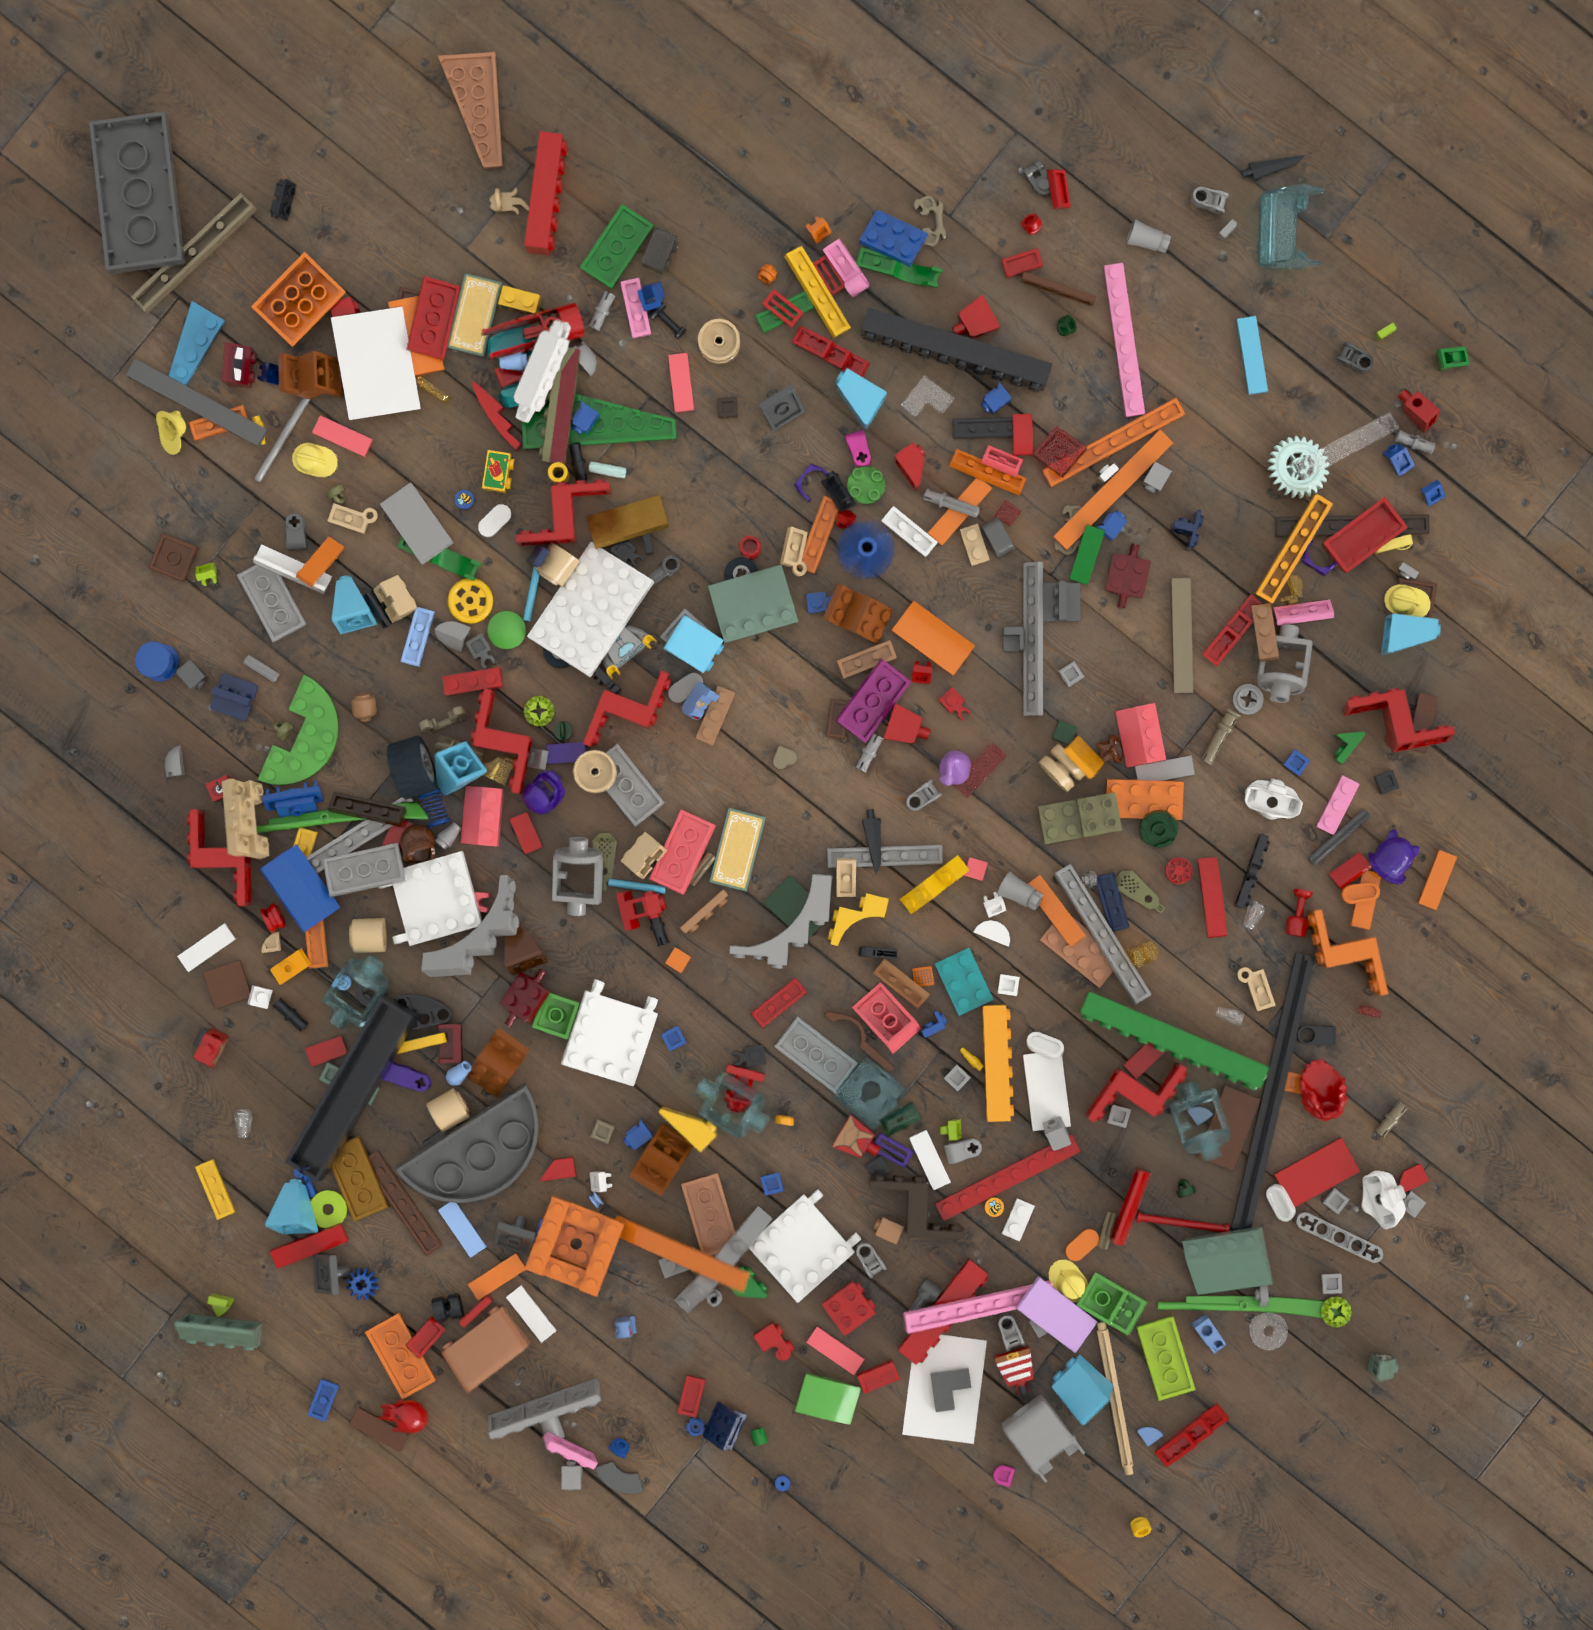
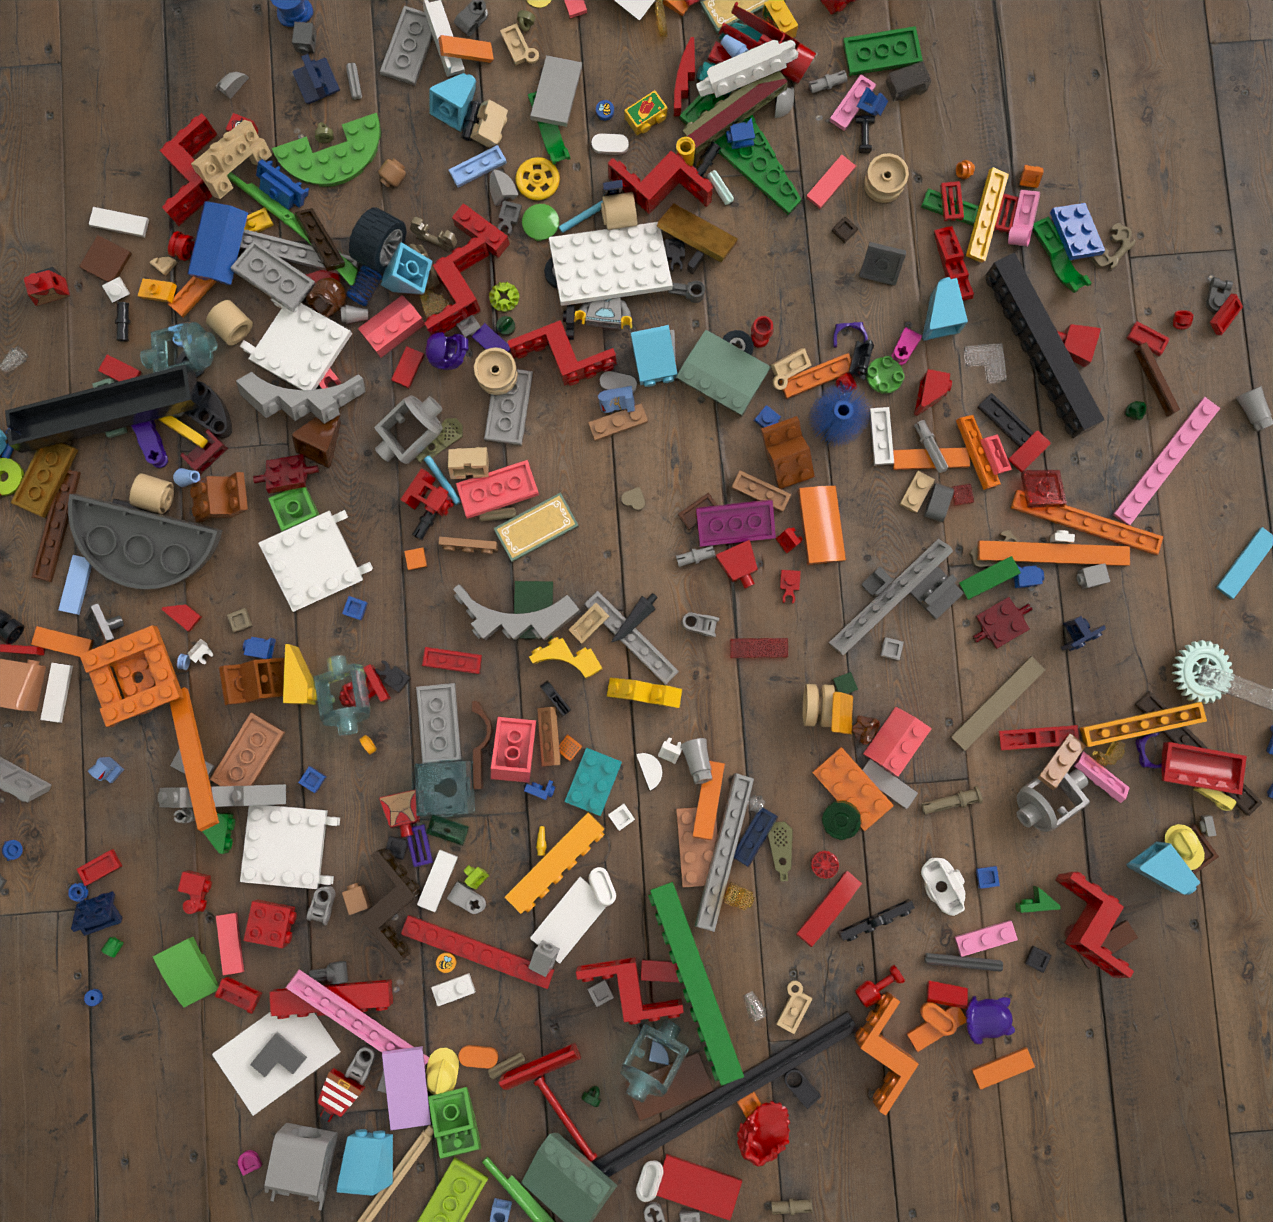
camera: 45 degrees right, 5 degrees down
(954, 768) = (743, 627): medium lavender piece -> none
(957, 1077) = (517, 843): light grey plate -> none
(976, 869) = (684, 713): coral tile -> none
(995, 399) = (1035, 409): blue window -> none
(1079, 818) = (794, 754): olive piece -> none
(1254, 914) = (846, 952): clear cone -> none
(1255, 694) = (1007, 798): light grey gear -> none
(1370, 1012) = (857, 1112): clear red tile -> none

